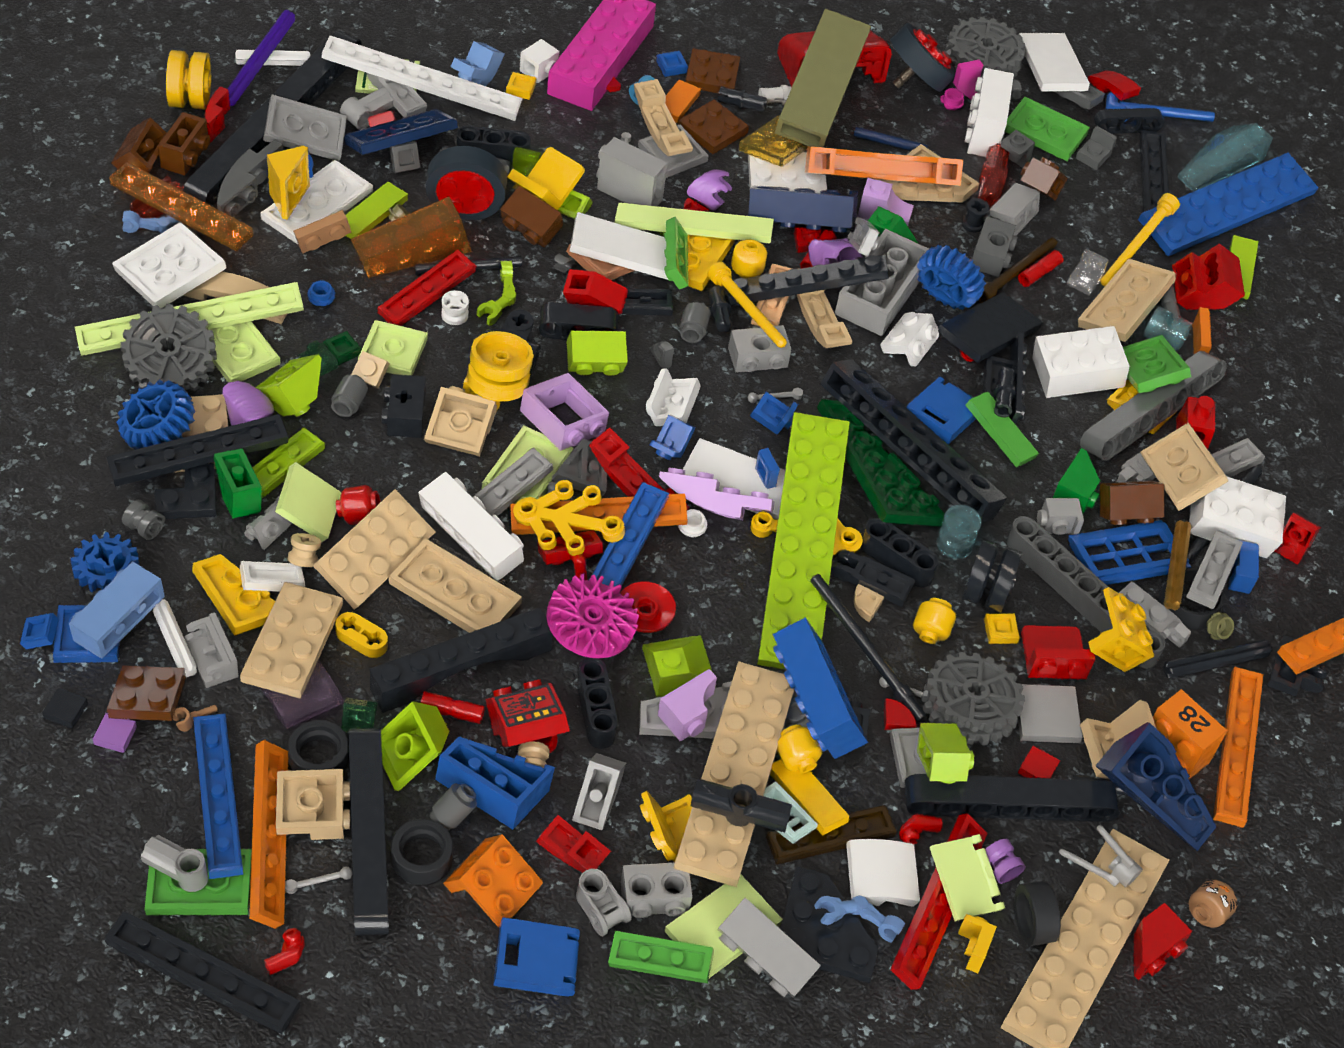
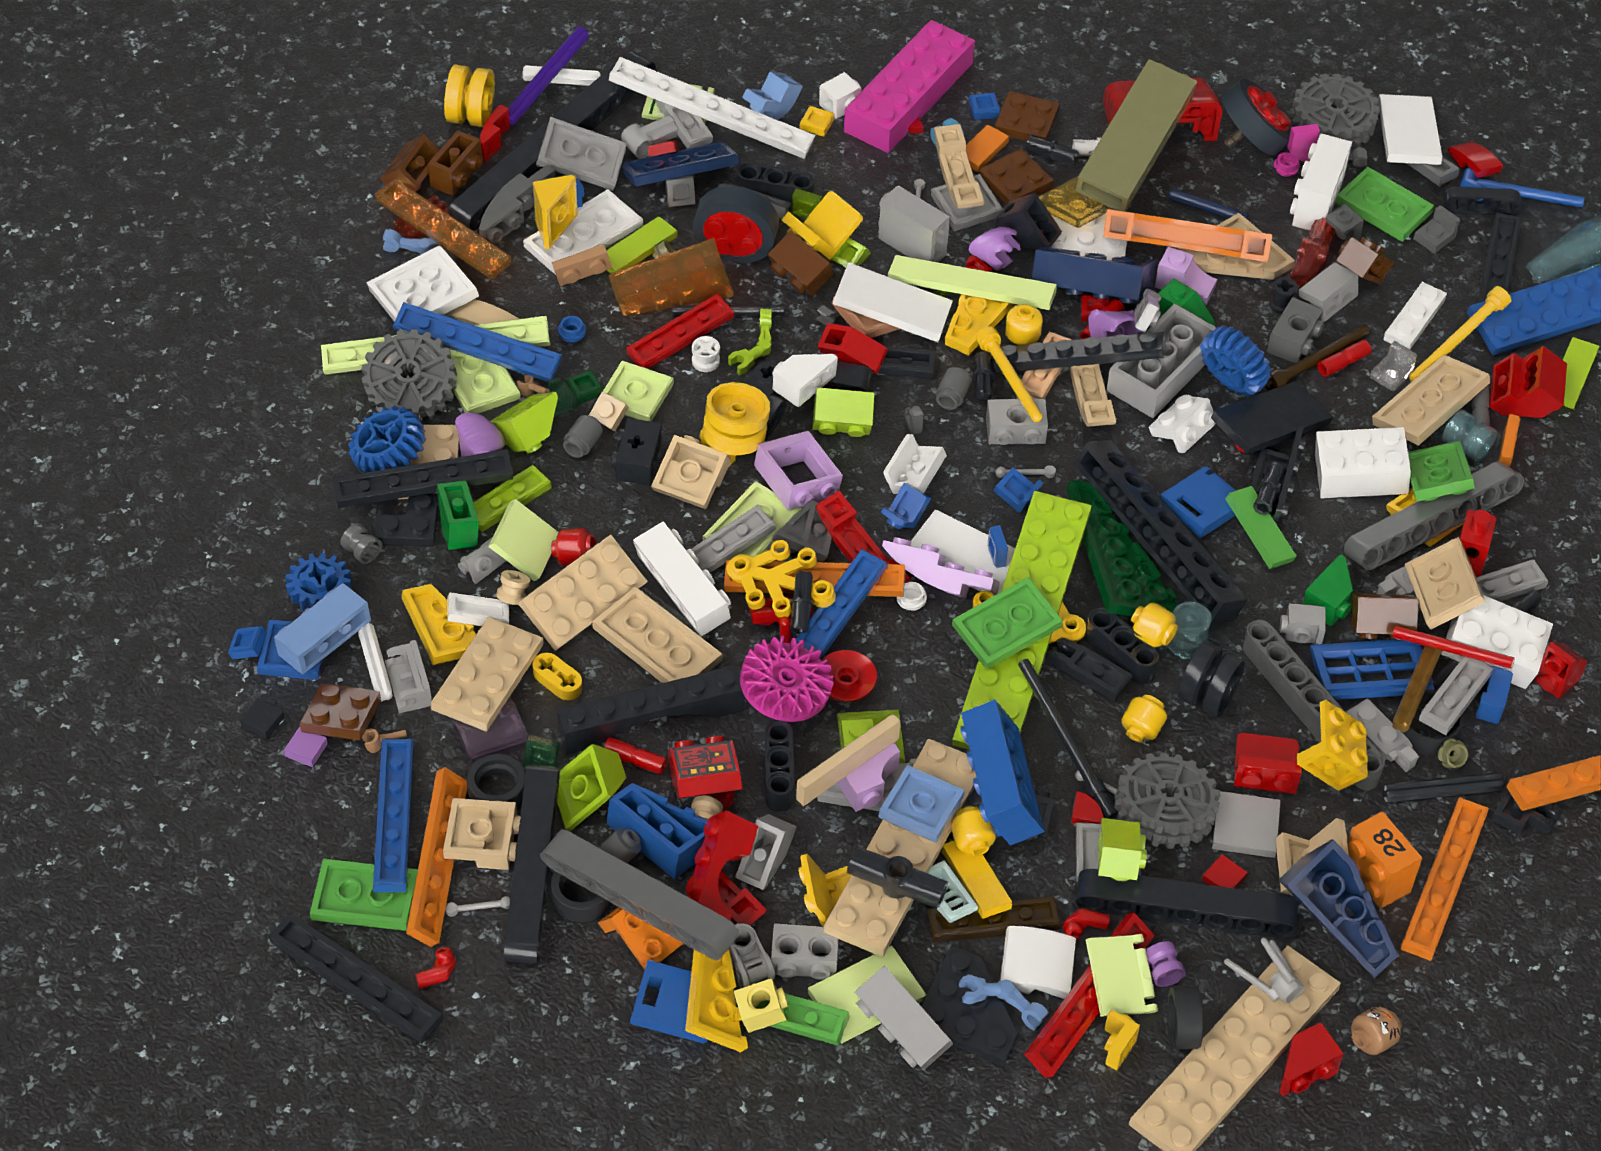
camera: 15 degrees right, 0 degrees up
(175, 861) = (344, 873): light grey piece -> none
(235, 312) = (480, 342): none -> blue tile
(287, 352) = (529, 387): none -> medium nougat hand
(488, 852) = (640, 894): none -> dark grey beam
(551, 863) = (725, 840): none -> red arch
(555, 320) = (802, 375): none -> white slope
(574, 955) = (712, 1002): none -> yellow wing
(594, 540) = (801, 602): none -> black axle
(613, 944) = (752, 995): none -> light yellow brick
(670, 691) = (848, 759): none -> tan tile
(676, 253) = (945, 314): bright green plate -> none
(739, 161) = (1031, 221): none -> black torso
(748, 728) = (921, 803): none -> medium blue plate
(793, 541) = (1007, 623): none -> bright green plate
(867, 602) = (1079, 693): tan tile -> none
(931, 530) = (1154, 625): none -> yellow head
(1001, 628) = (1216, 733): yellow tile -> none
(1093, 225) = (1415, 315): none -> white plate
(1204, 525) = (1453, 647): none -> red bar

